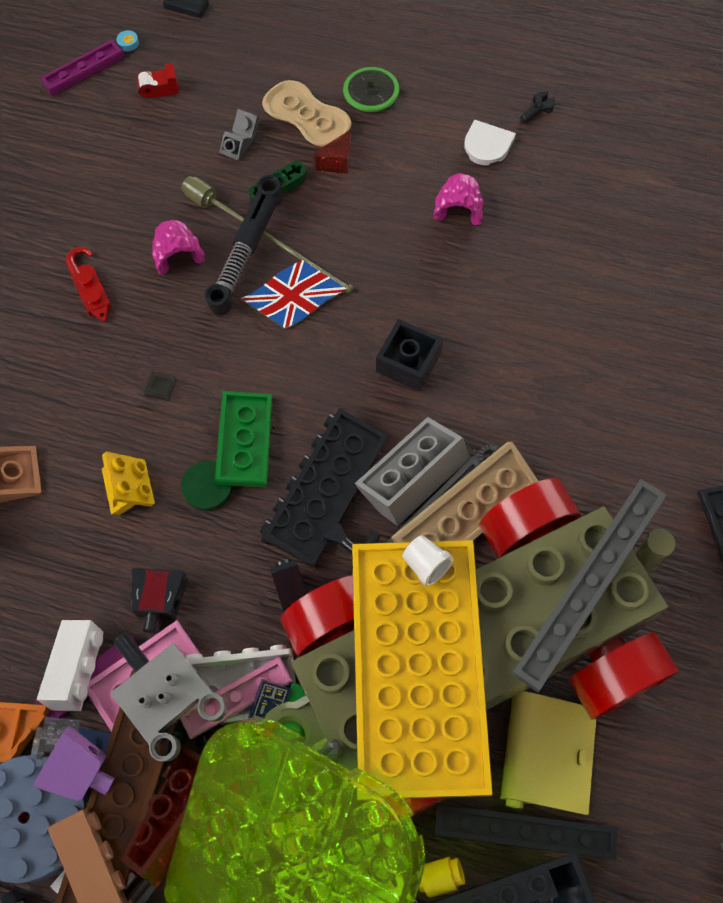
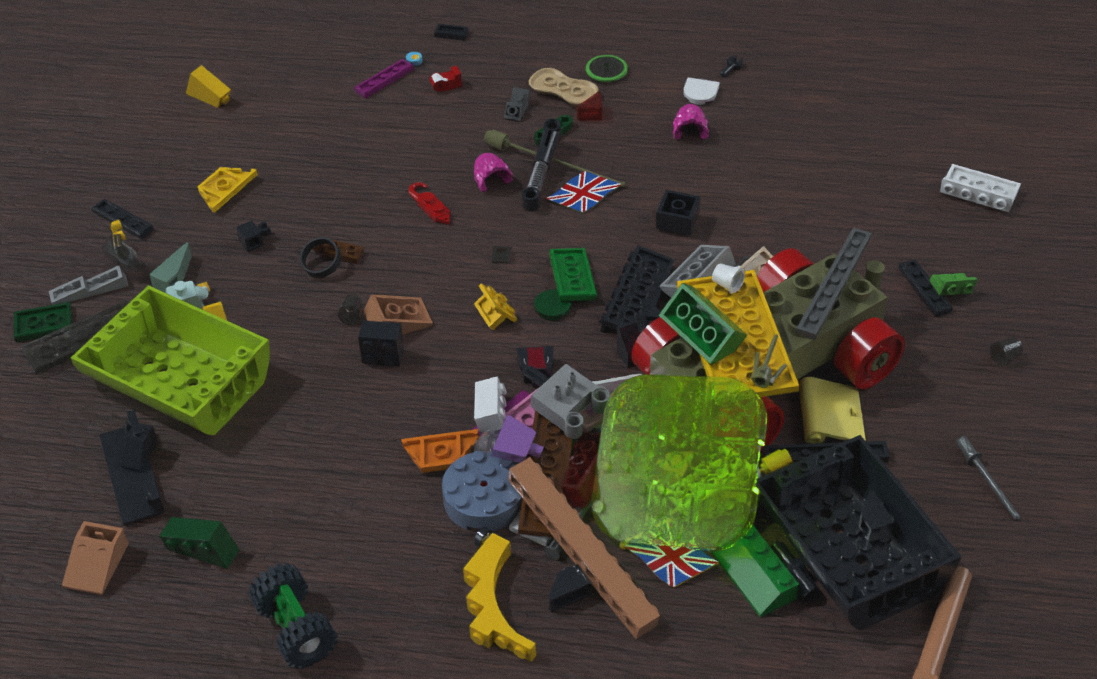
camera: 10 degrees left, 20 degrees down
(367, 650) = (702, 324): none -> green slope
(437, 773) = (763, 375): none -> olive plant

